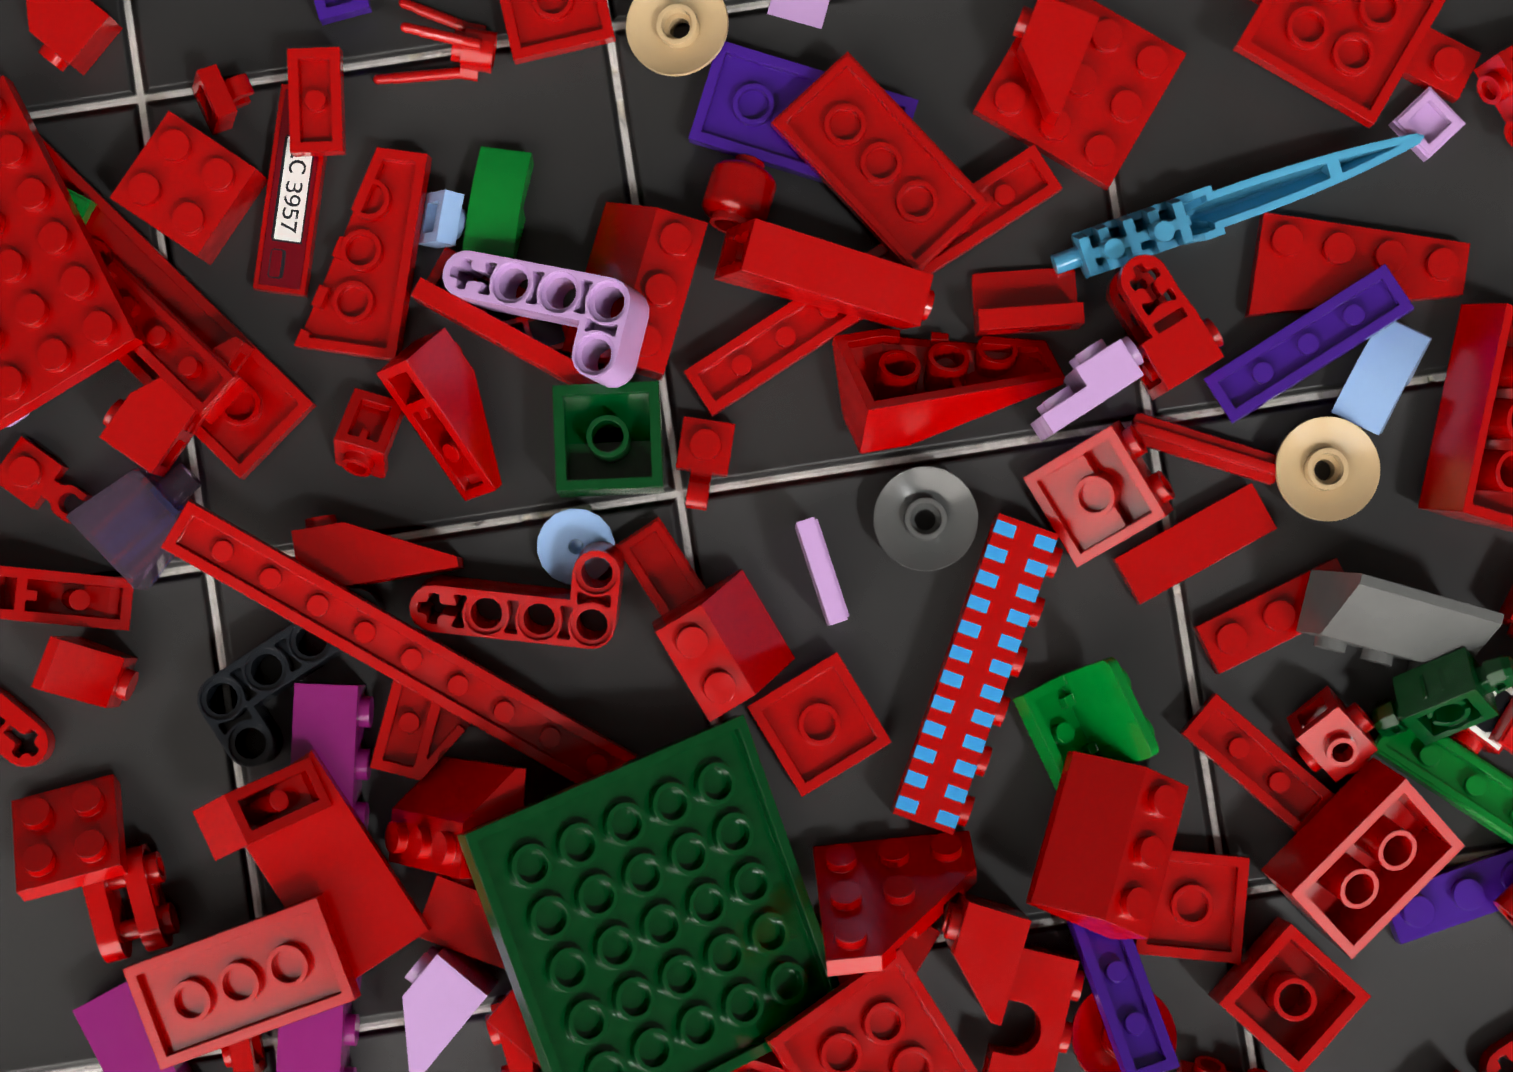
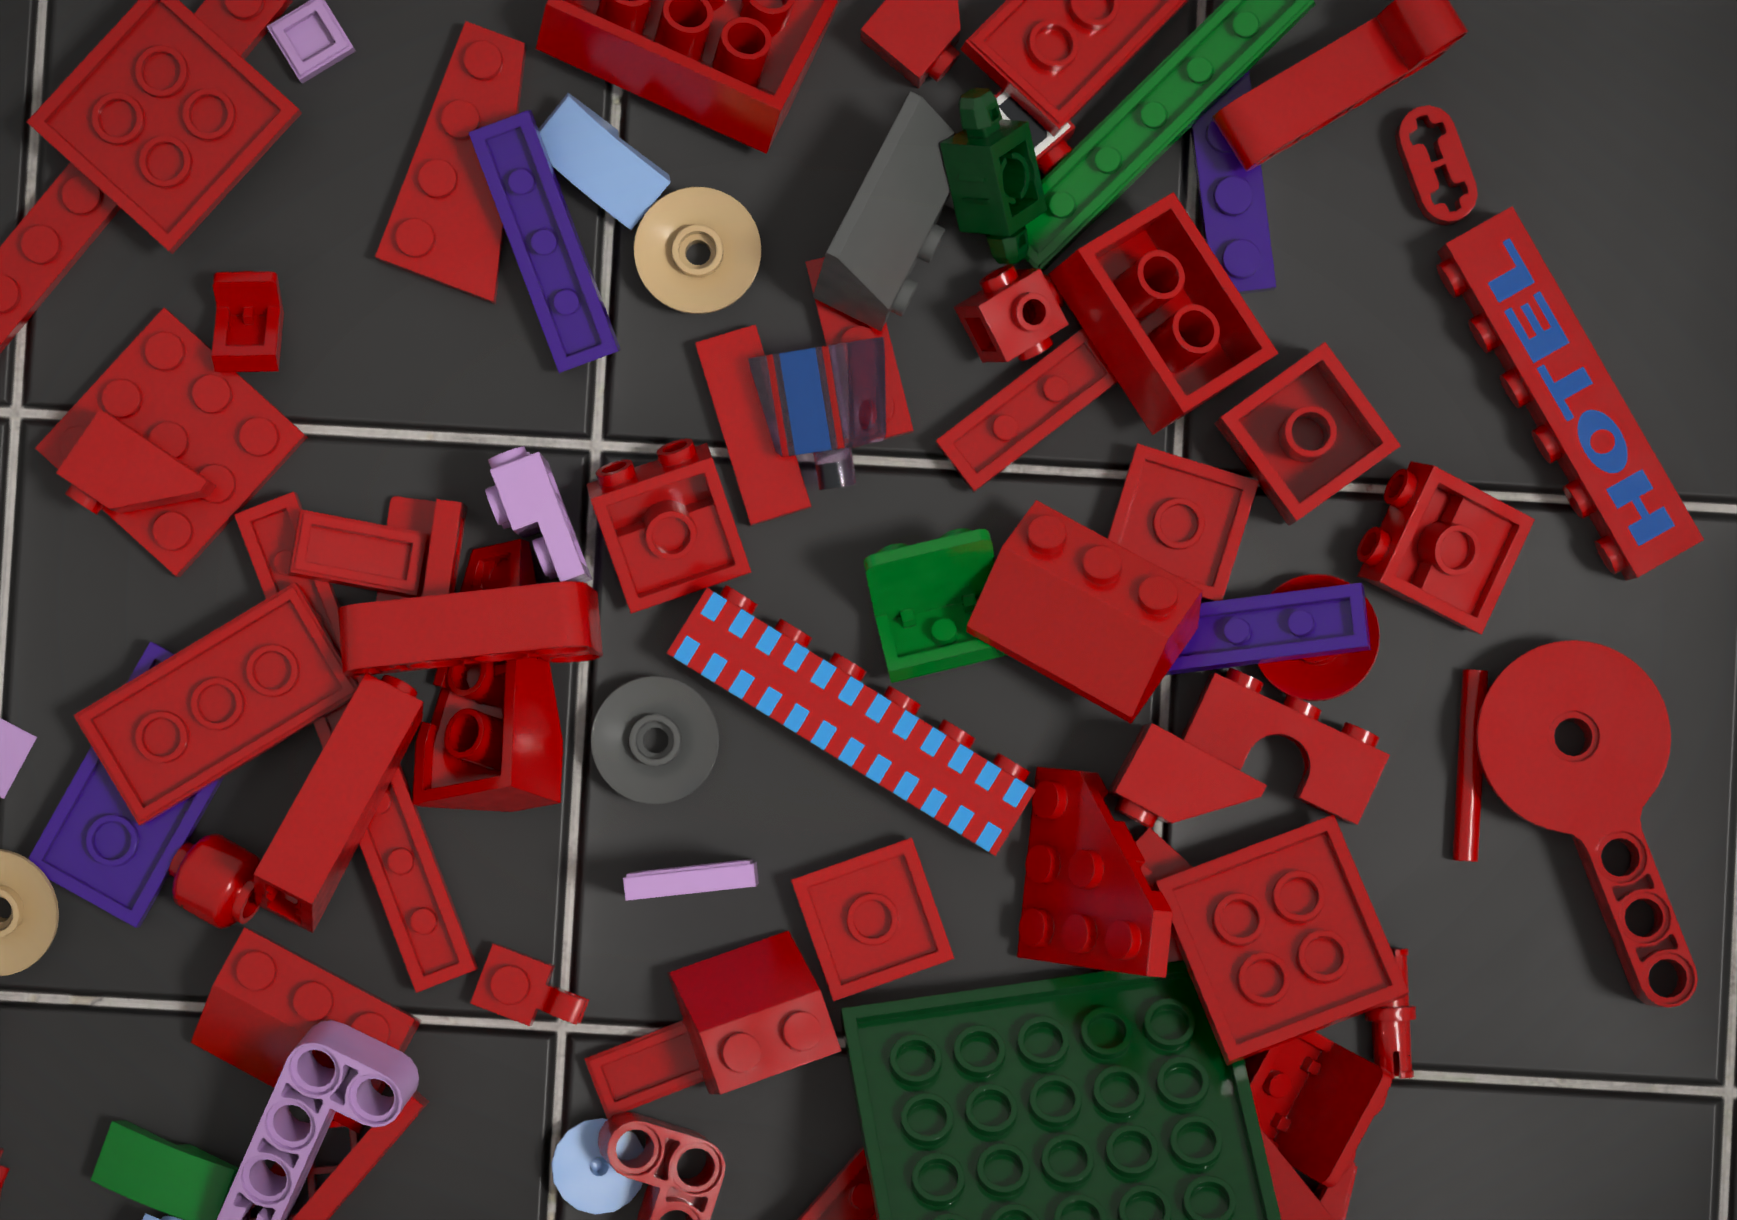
camera: 85 degrees left, 0 degrees up
(608, 439) = (479, 1101): dark green slope -> none
(988, 353) = (472, 628): none -> red beam
(1024, 249) = (357, 554): none -> red tile
(1171, 337) = (502, 406): red brick -> none
(1191, 121) = (247, 322): none -> red bracket
(1206, 212) = (361, 330): dark azure piece -> none
(1206, 449) = (642, 388): red axle -> none
(1229, 597) = (824, 403): none -> torso

